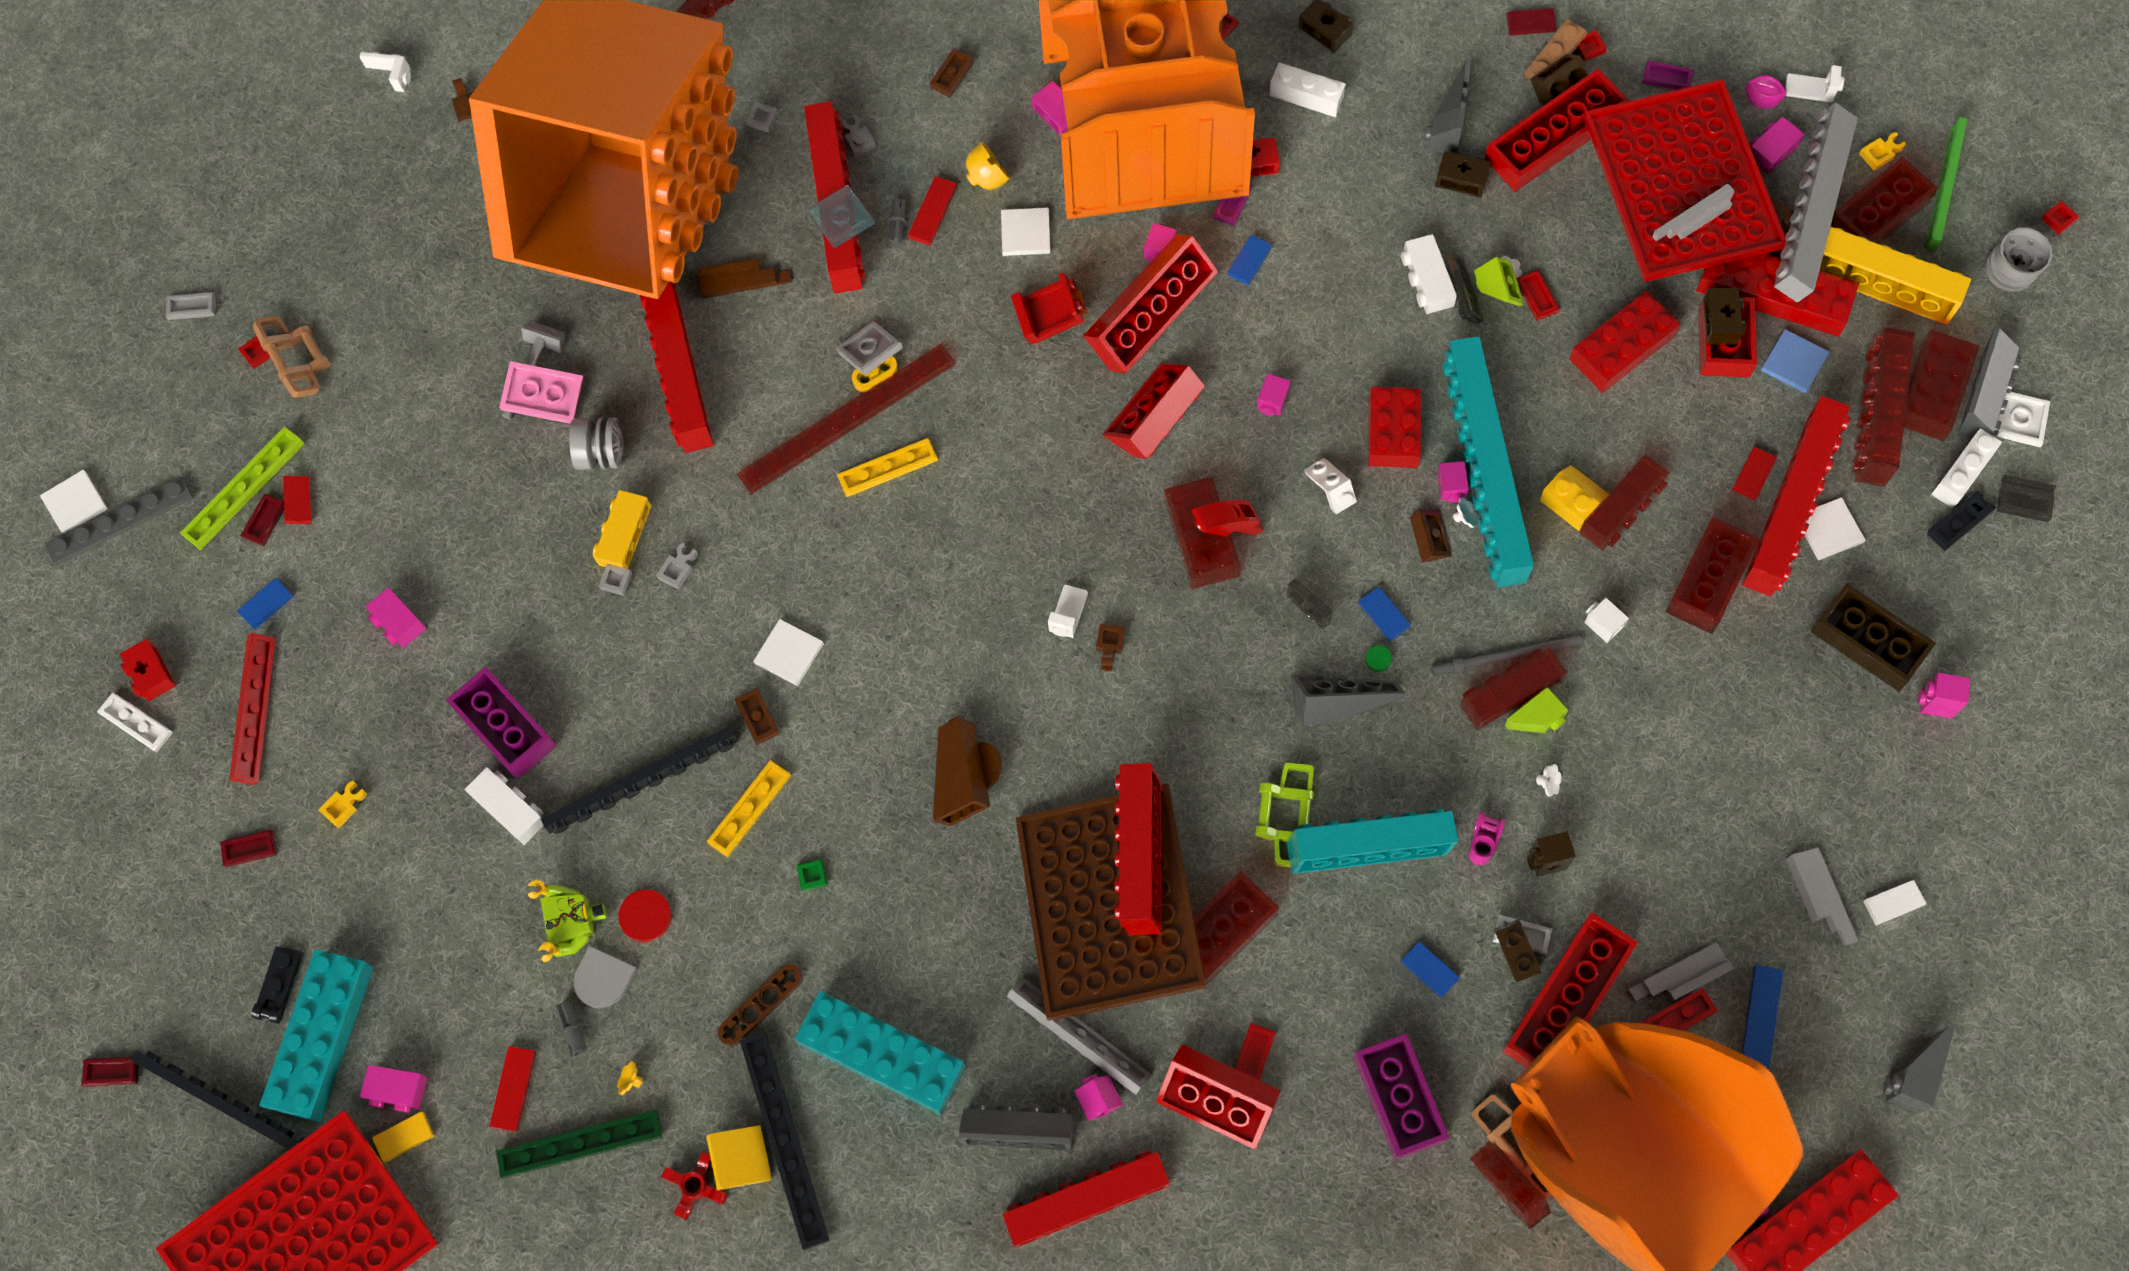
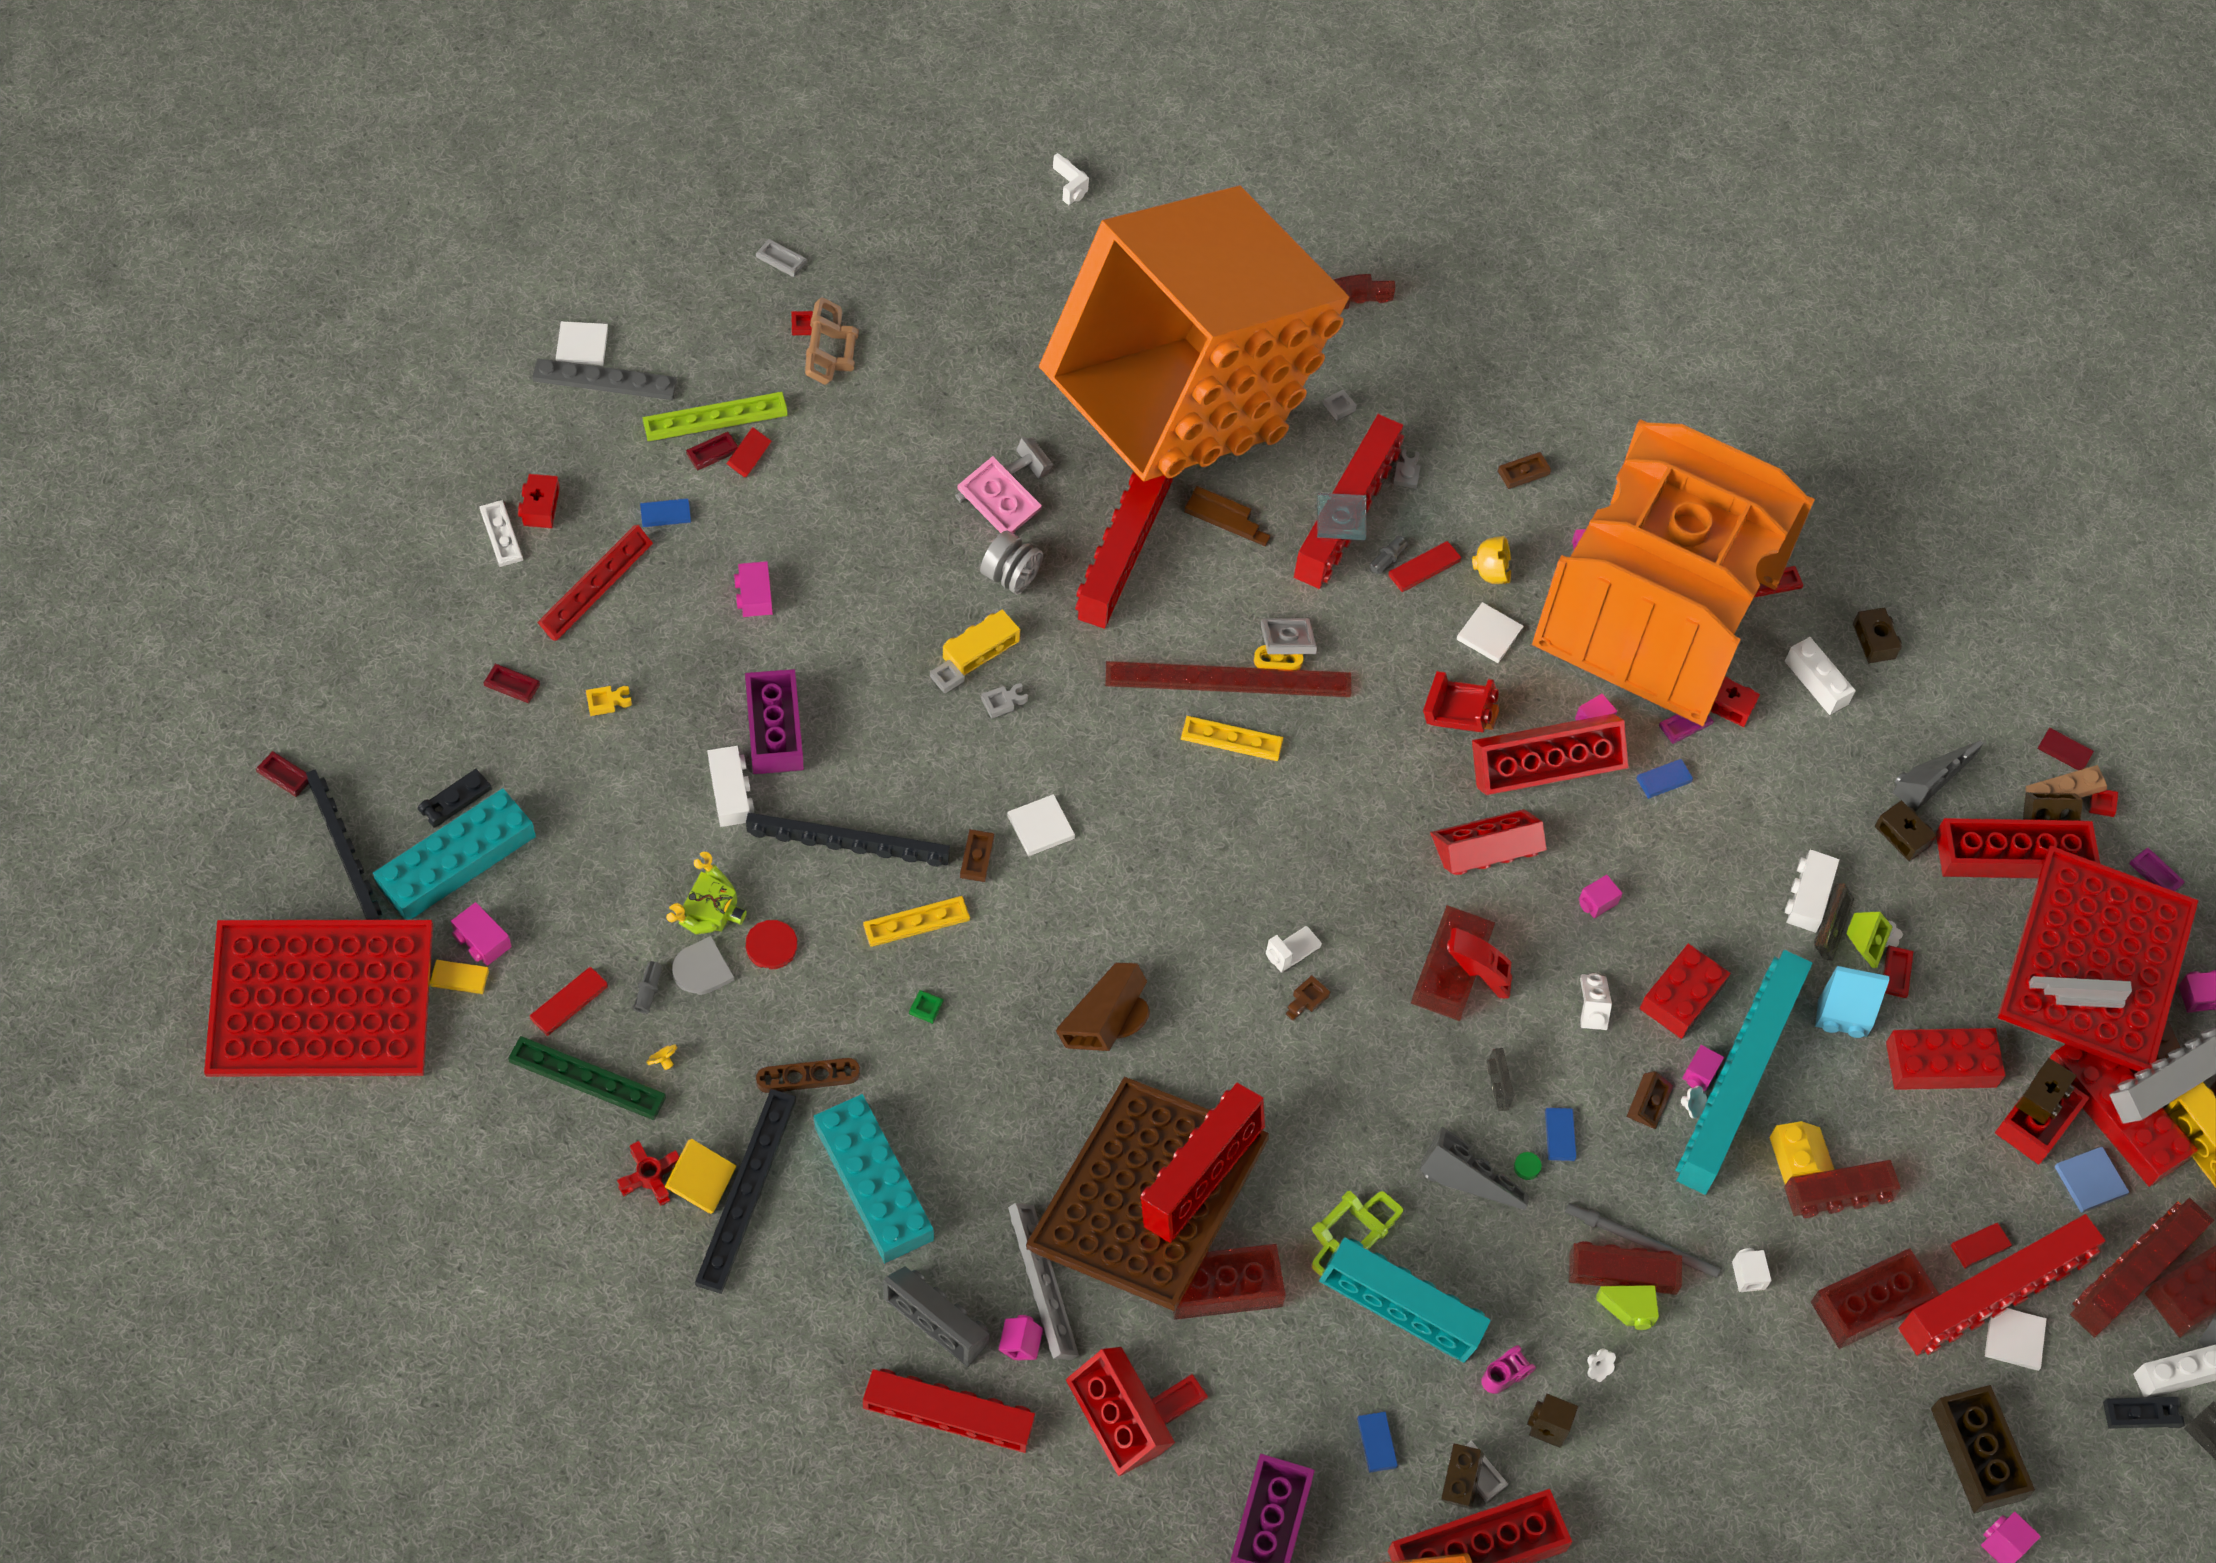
camera: 25 degrees right, 10 degrees down
(1527, 347) = (1851, 1002): none -> medium azure slope

